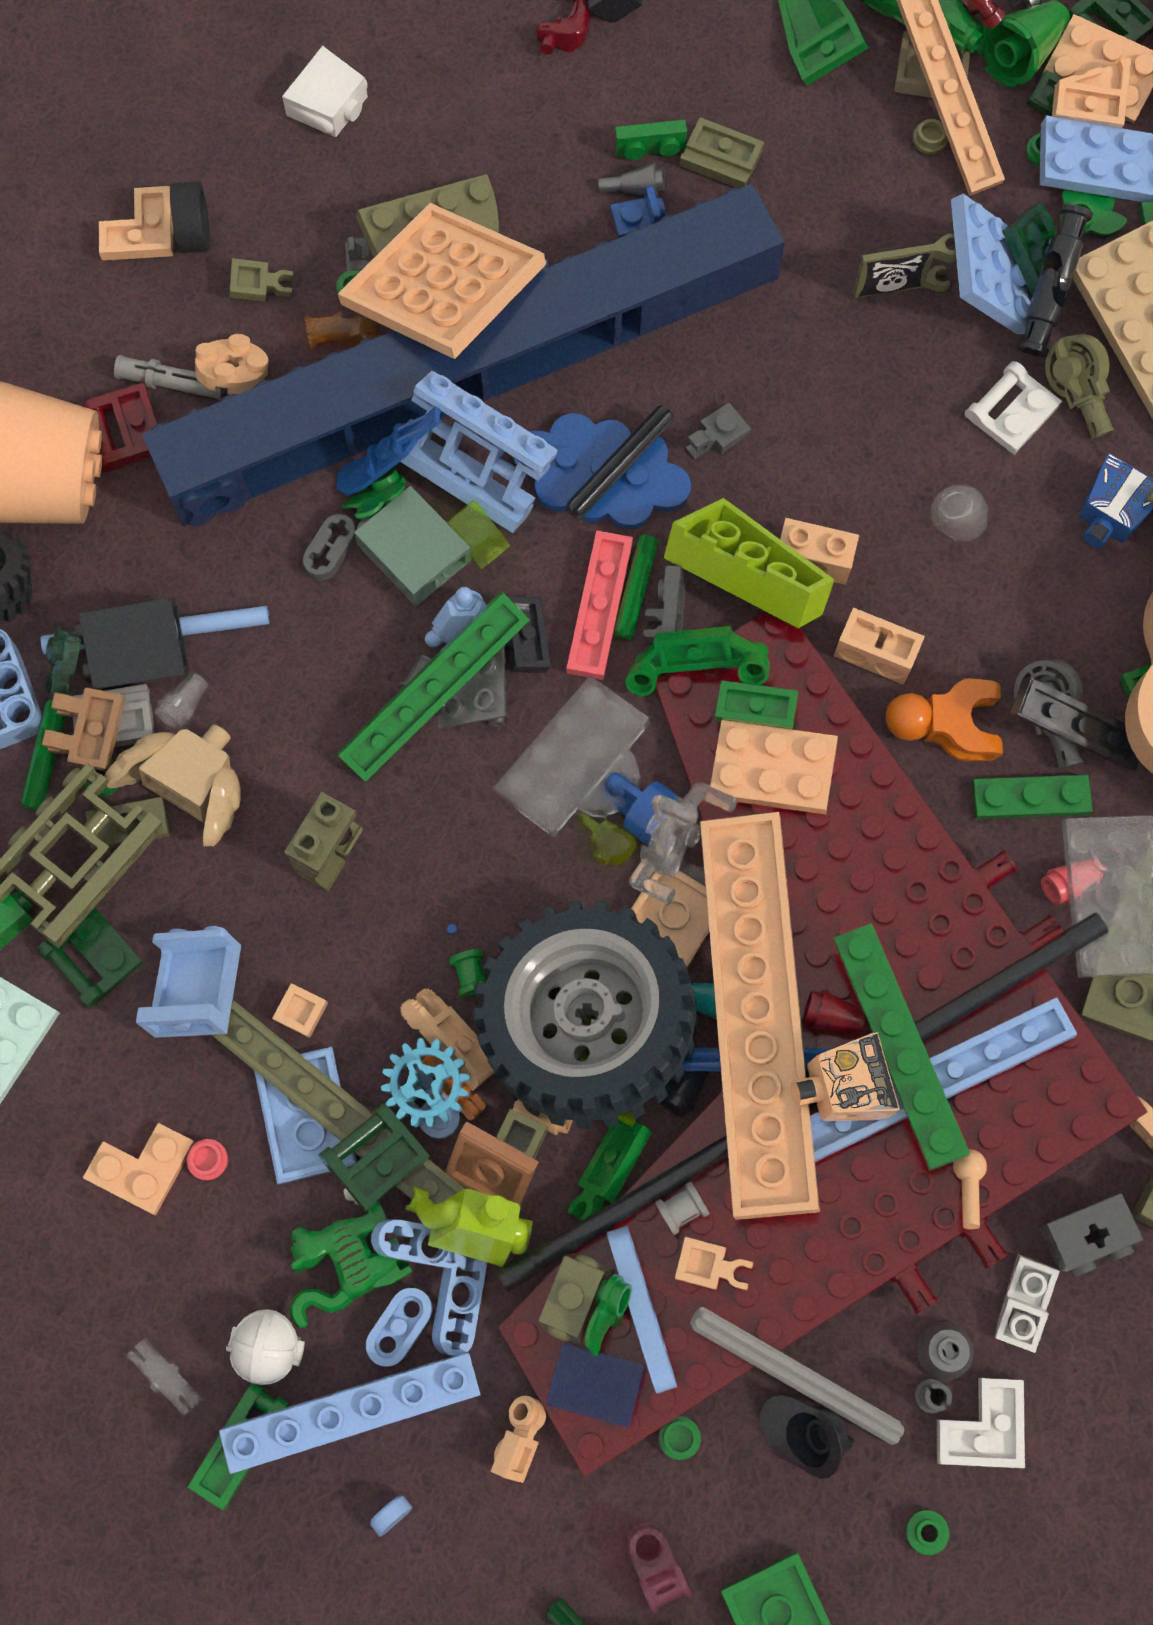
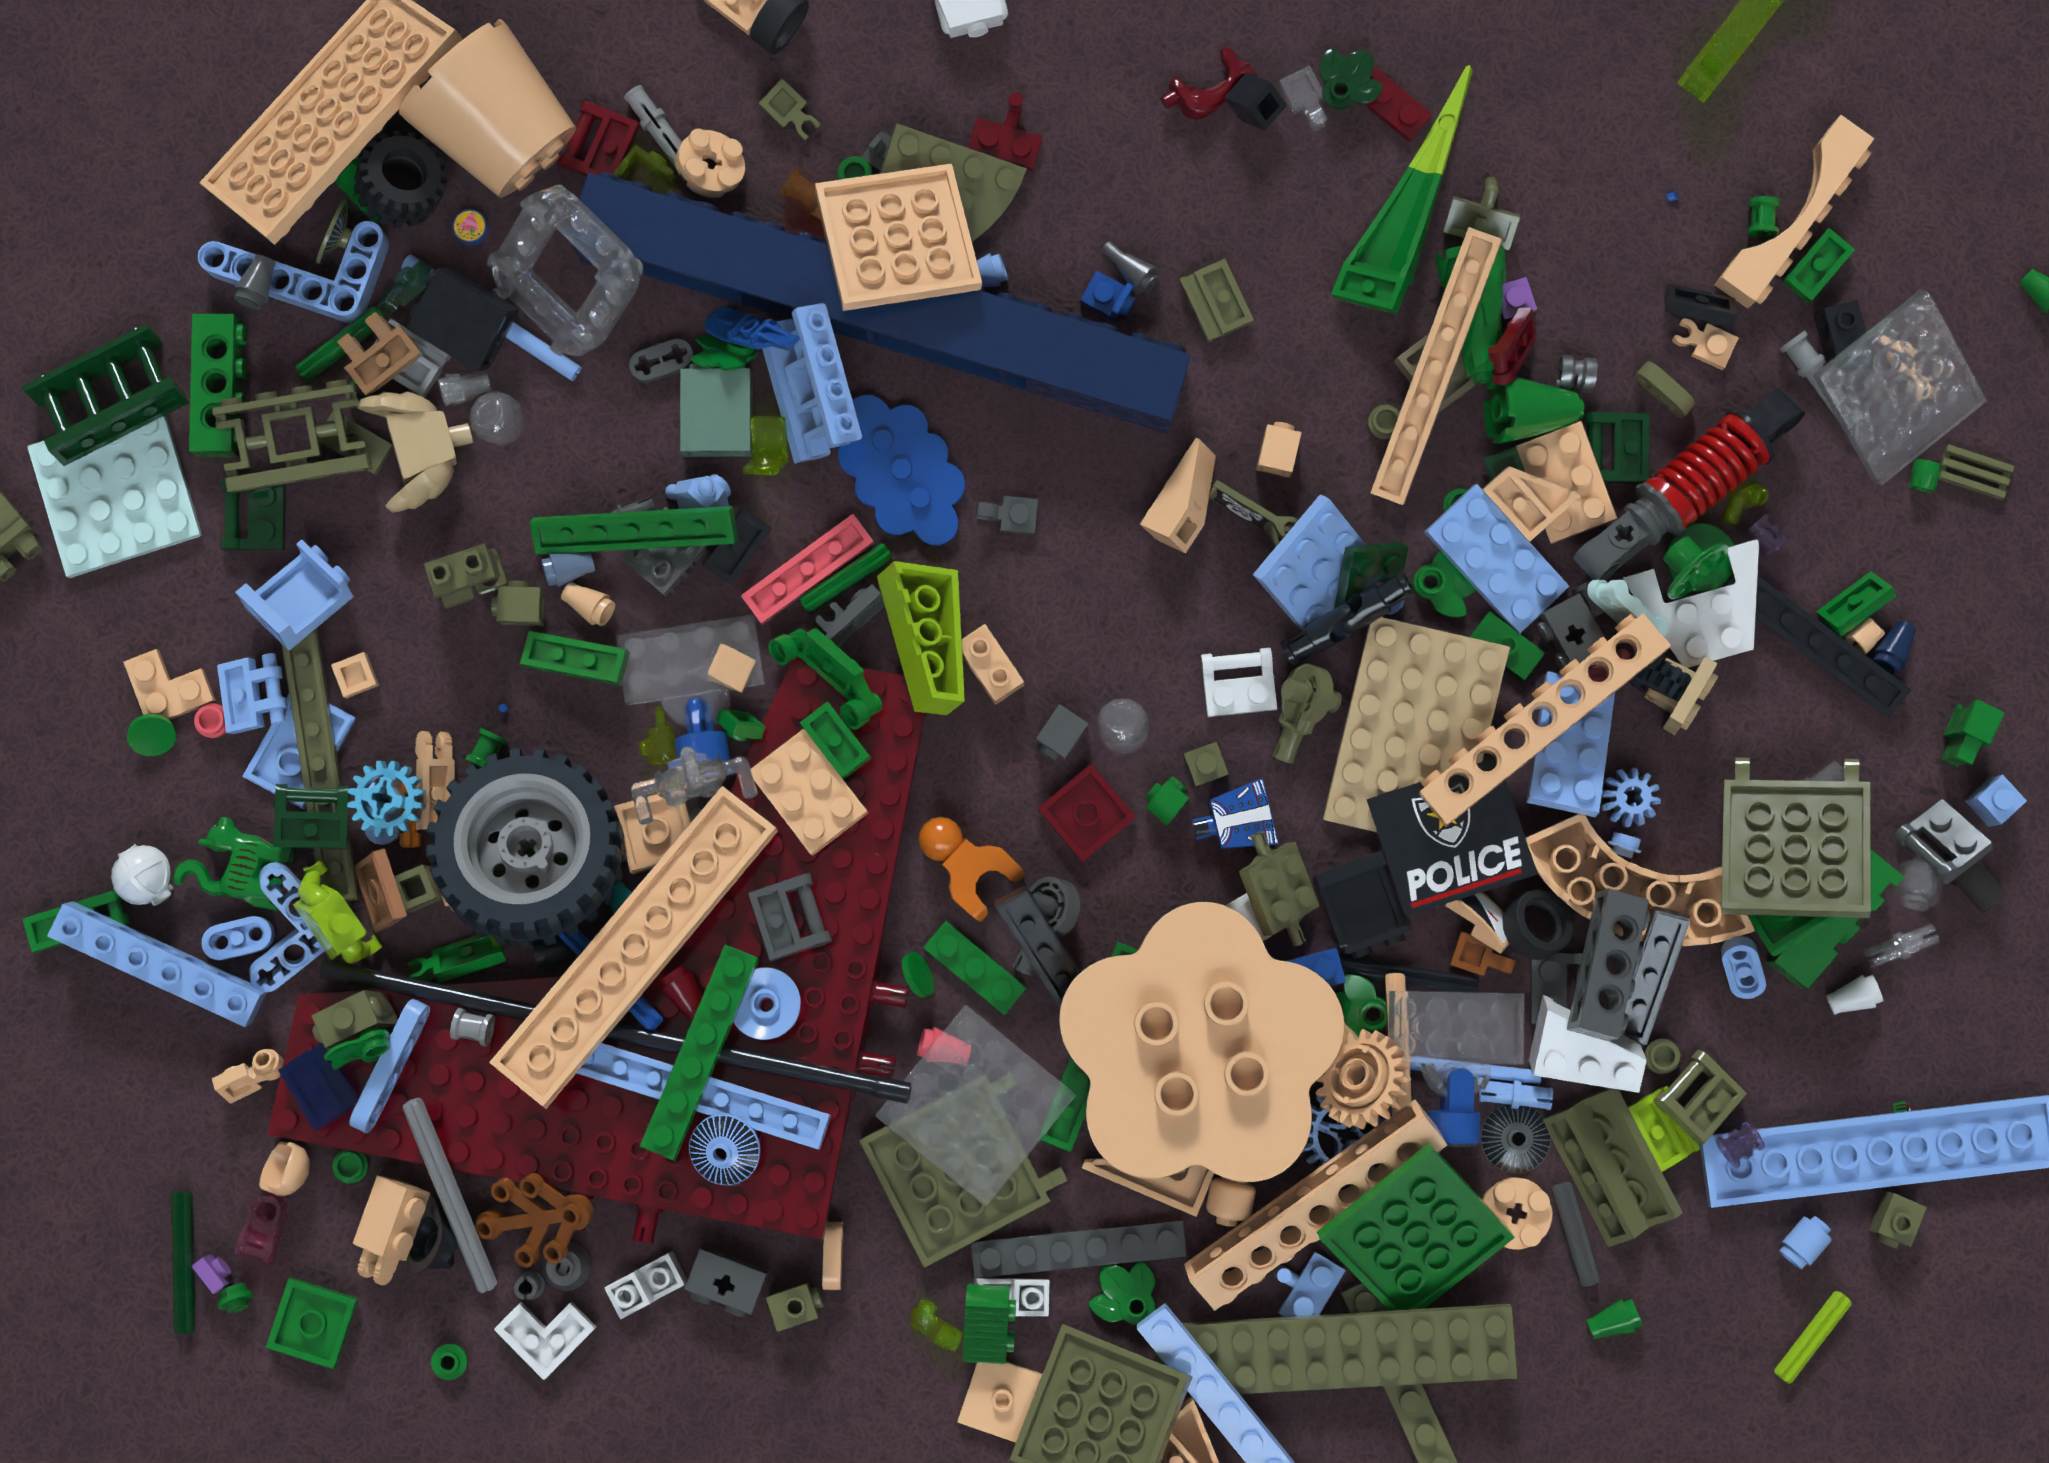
camera: 40 degrees right, 10 degrees up
(74, 575) = (470, 227): none -> tile
(164, 1218) = (151, 734): none -> green piece
(164, 1377) = (67, 837): clear pin -> none
(179, 404) = (651, 161): none -> clear neon green bracket
(190, 474) = (616, 275): none -> clear plate
(216, 1114) = (241, 693): none -> light blue plate
(232, 702) = (497, 418): none -> clear hair
(389, 831) = (519, 604): none -> olive brick
(390, 1515) = (129, 1048): light blue tile -> none
(400, 770) = (566, 567): none -> sand blue cone
(446, 782) = (590, 604): none -> light nougat cone
(447, 168) = (1006, 140): none -> dark red plate
(477, 832) = (575, 658): none -> green plate
(617, 725) = (731, 668): none -> light nougat slope
(619, 462) = (912, 478): black axle -> none
(624, 1513) = (281, 1179): none -> light nougat hair
(650, 138) = (1159, 237): green plate -> none
(664, 767) = (740, 724): none -> green plate
(705, 1263) = (453, 1076): light nougat plate -> none
(767, 1458) = (388, 1227): none -> light nougat hinge
(846, 318) = (1183, 502): none -> light nougat slope
(849, 1083) = (638, 1045): torso -> none
(854, 885) = (778, 920): none -> dark grey plate
(875, 216) = (1279, 449): none -> light nougat brick
(878, 646) = (965, 771): light nougat brick -> none
(889, 1323) = (573, 1212): none -> dark orange plant
(921, 556) = (1060, 734): none -> dark grey brick
(924, 943) = (773, 985): none -> light blue dish
(970, 1171) = (671, 1172): light nougat bar -> none
(983, 1096) = (735, 1138): none -> dish
(994, 840) = (917, 974): none -> green piece
(999, 600) = (1086, 813): none -> dark red plate
(1049, 488) = (1205, 764): none -> olive plate
(1051, 536) = (1166, 800): none -> green plate

